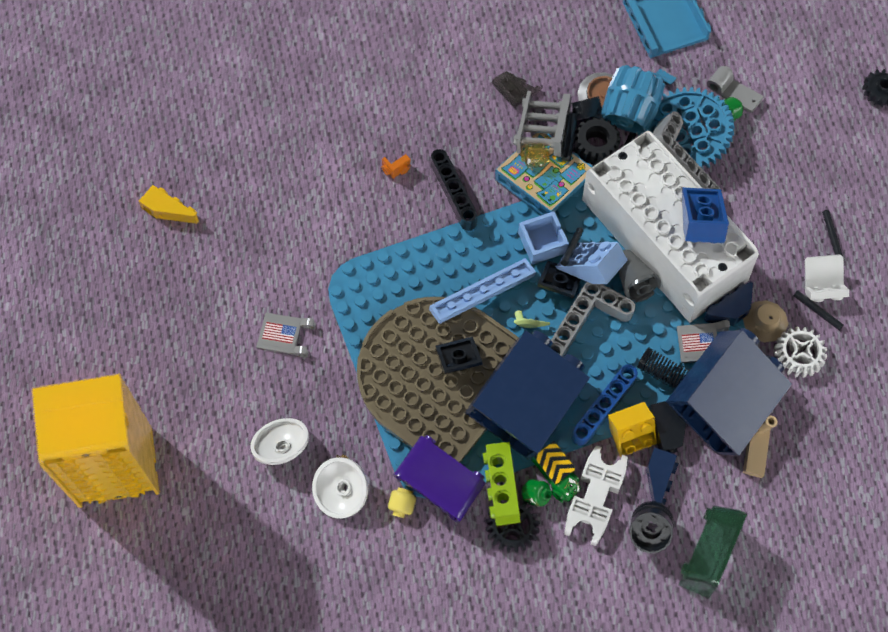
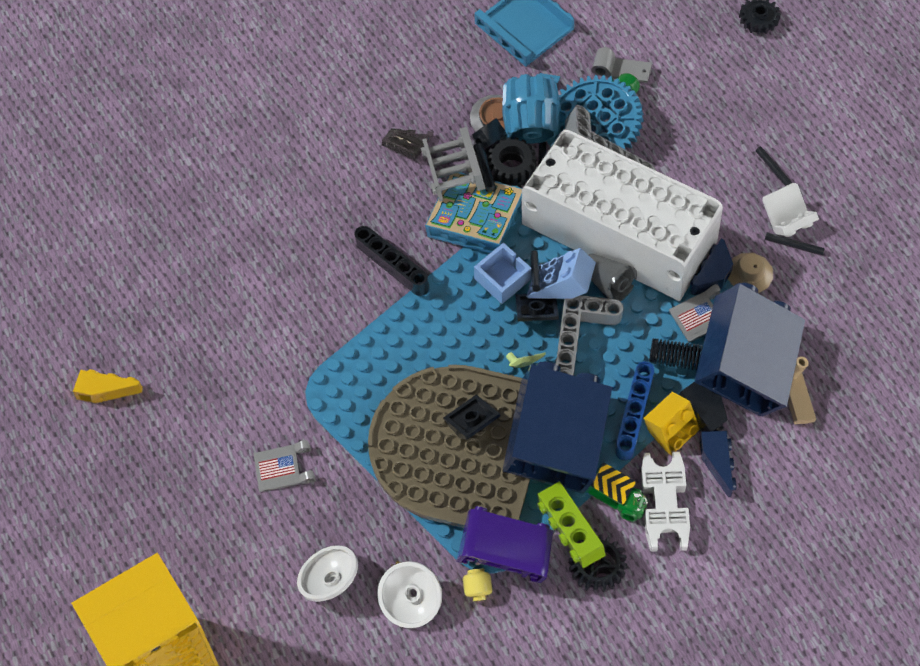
camera: 20 degrees left, 5 degrees down
(398, 167) = (326, 259): orange bracket -> none
(482, 290) = (465, 347): light blue plate -> none
(535, 155) = (460, 196): clear yellow head -> none
(536, 492) = (606, 521): green head -> none
(648, 537) = (743, 516): black wheel -> none
(704, 215) = (656, 188): blue slope -> none
(712, 550) = (805, 506): clear green windscreen -> none
(810, 364) = (789, 279): white gear -> none

